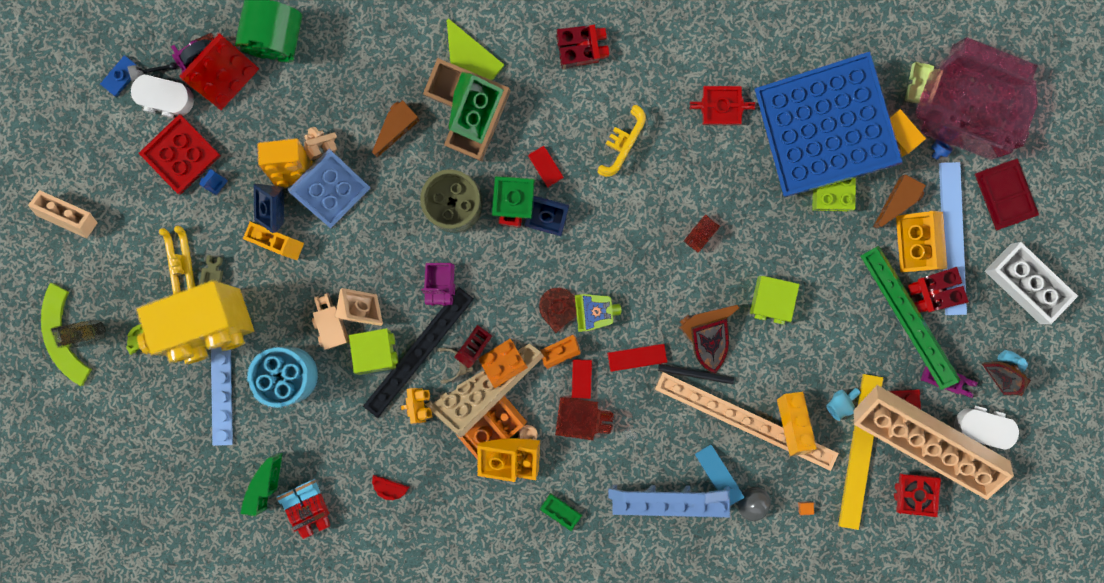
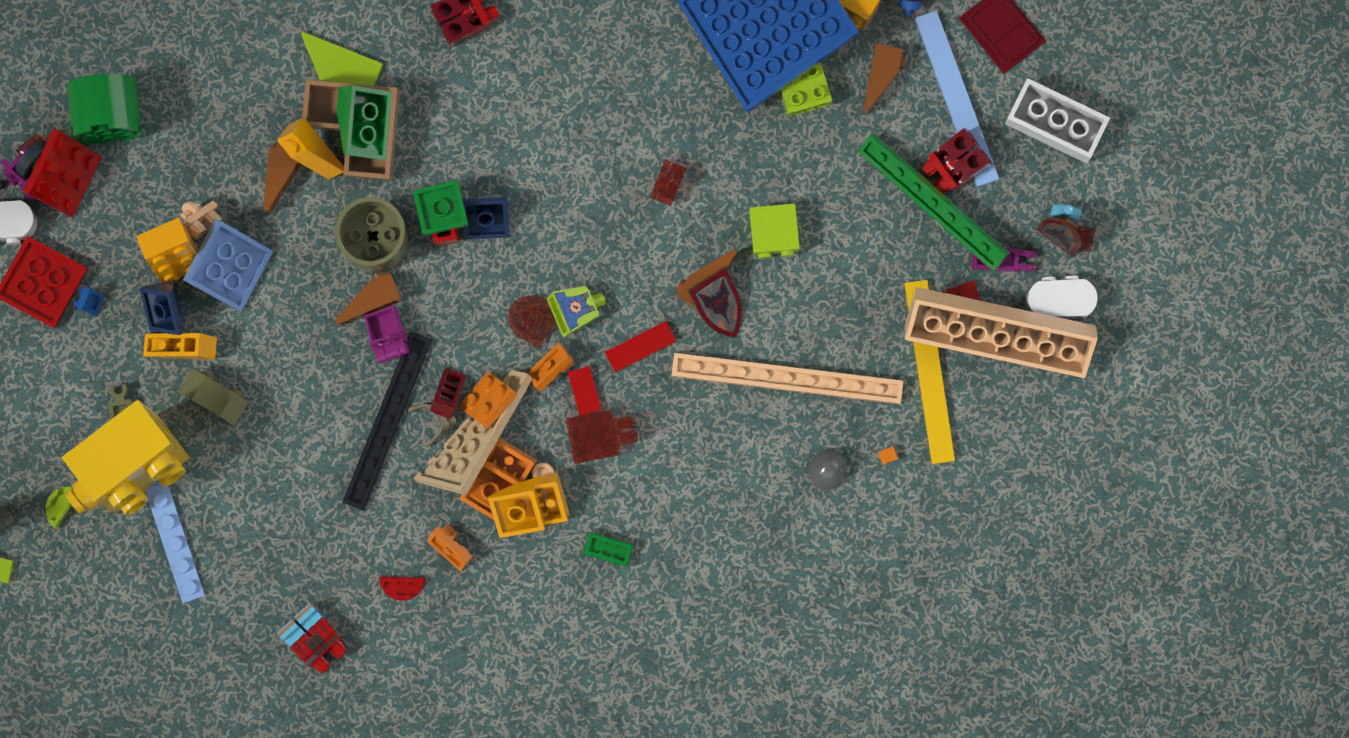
camera: 20 degrees left, 5 degrees down
(178, 263) = (77, 407): yellow piece -> none
(262, 486) = (256, 624): green slope -> none
(286, 289) = (213, 396): none -> olive brick
(298, 372) = (254, 506): medium azure brick -> none
(330, 328) = (275, 420): light nougat brick -> none
(358, 307) = (303, 389): light nougat slope -> none
(373, 351) = (335, 434): lime brick -> none
(415, 405) = (402, 480): light orange hips -> none
(422, 114) = (309, 149): none -> light orange slope
(432, 464) = (443, 542): none -> orange hinge
(438, 250) = (375, 295): none -> dark orange slope
(545, 166) = (466, 163): red tile -> none
(623, 142) = (547, 109): yellow piece -> none
(670, 503) = (727, 499): medium blue plate -> none
(695, 374) = (713, 343): black bar -> none
(718, 473) = (775, 449): dark azure slope -> none
(722, 105) = (646, 31): red plate -> none
(796, 424) = (842, 361): light orange brick -> none
(842, 404) = (890, 325): medium azure piece -> none
(916, 494) = (1006, 398): red piece -> none
(921, 241) = (921, 113): light orange slope -> none

